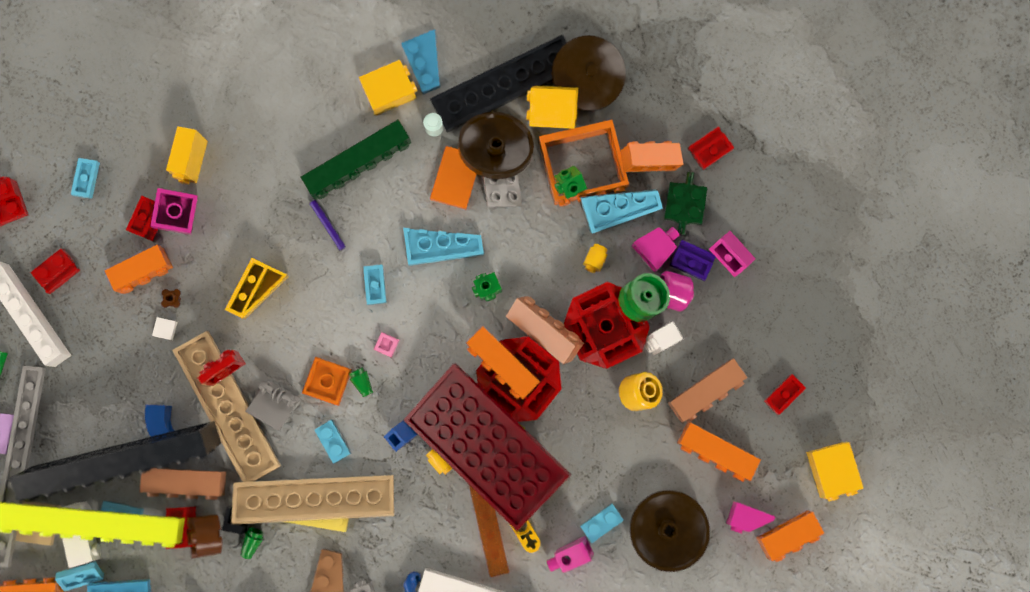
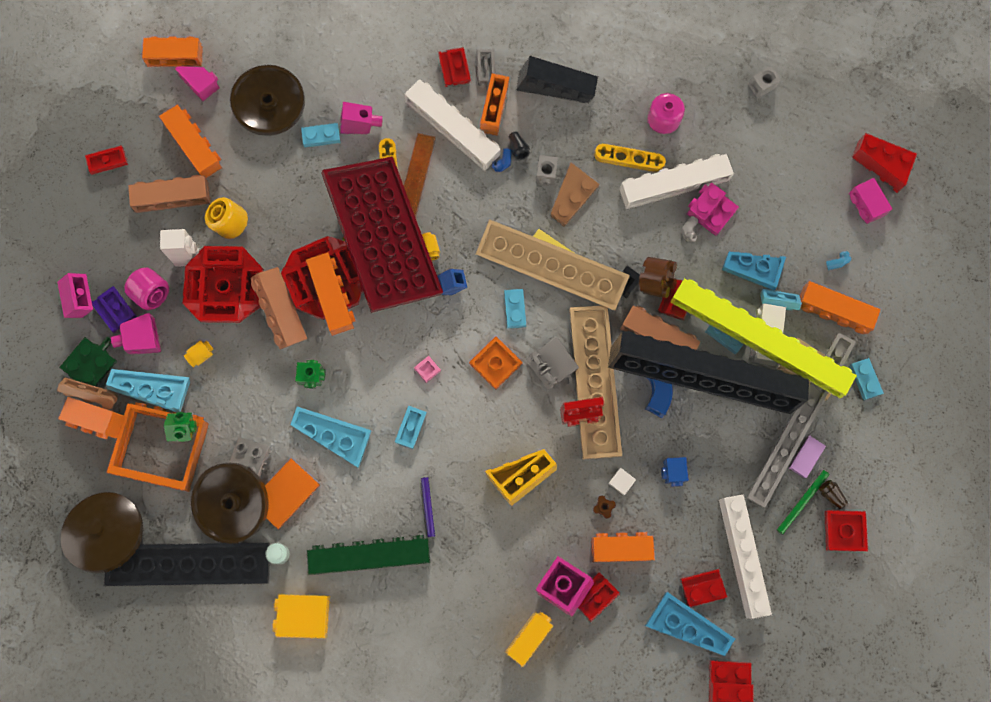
camera: 160 degrees left, 5 degrees down
(64, 233) = (684, 623): none -> dark azure wing
(85, 178) = (639, 668): medium azure plate -> none
(118, 359) = (675, 471): none -> blue brick
(251, 542) = (621, 258): green cone -> none
(361, 381) = (465, 346): green cone -> none
(423, 60) = (253, 630): dark azure wing -> none
(552, 107) = (154, 512): yellow brick -> none
(644, 297) = (174, 288): green wheel -> none
(668, 176) = (88, 392): none -> medium nougat plate
(710, 148) = (33, 403): red plate -> none
(835, 471) = (104, 82): yellow brick -> none

